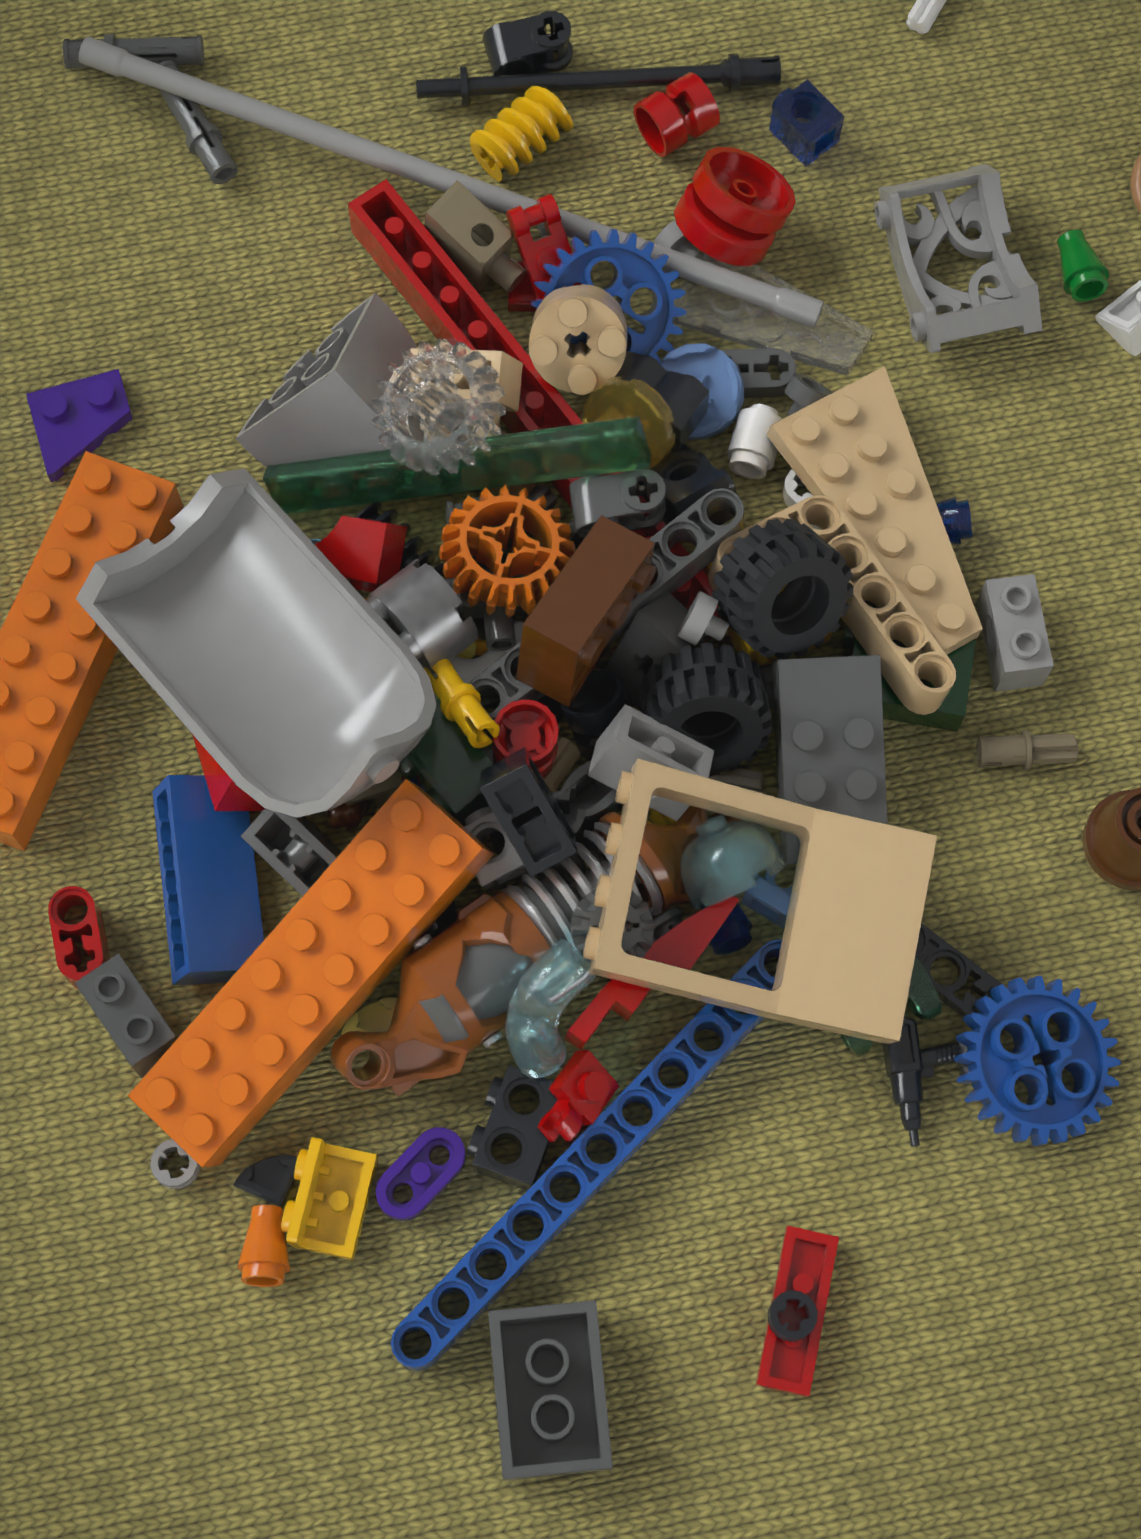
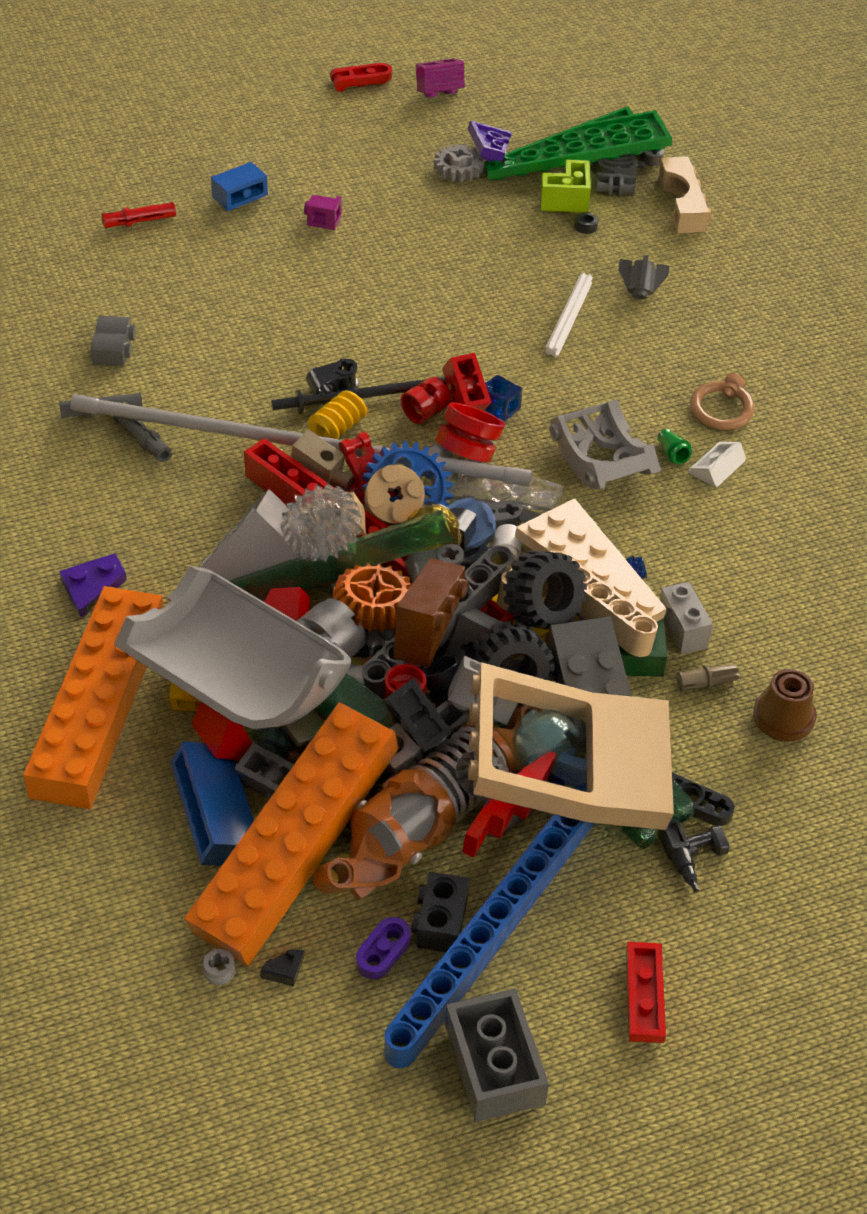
camera: 10 degrees left, 25 degrees down
(88, 931) = (134, 843): red beam -> none
(127, 1014) = (172, 878): dark grey brick -> none
(264, 1251) = (288, 1007): orange cone -> none
(329, 1199) = (327, 969): yellow bracket -> none
(462, 704) = (364, 671): yellow pin -> none
(538, 1005) = (443, 826): clear light blue cylinder -> none
(581, 1095) = (479, 880): red plate -> none
(701, 620) = (500, 611): light grey tile -> none
(749, 99) = (466, 381): none -> red brick
(779, 1305) = (649, 979): black bush -> none
(995, 1070) = (759, 832): blue gear -> none

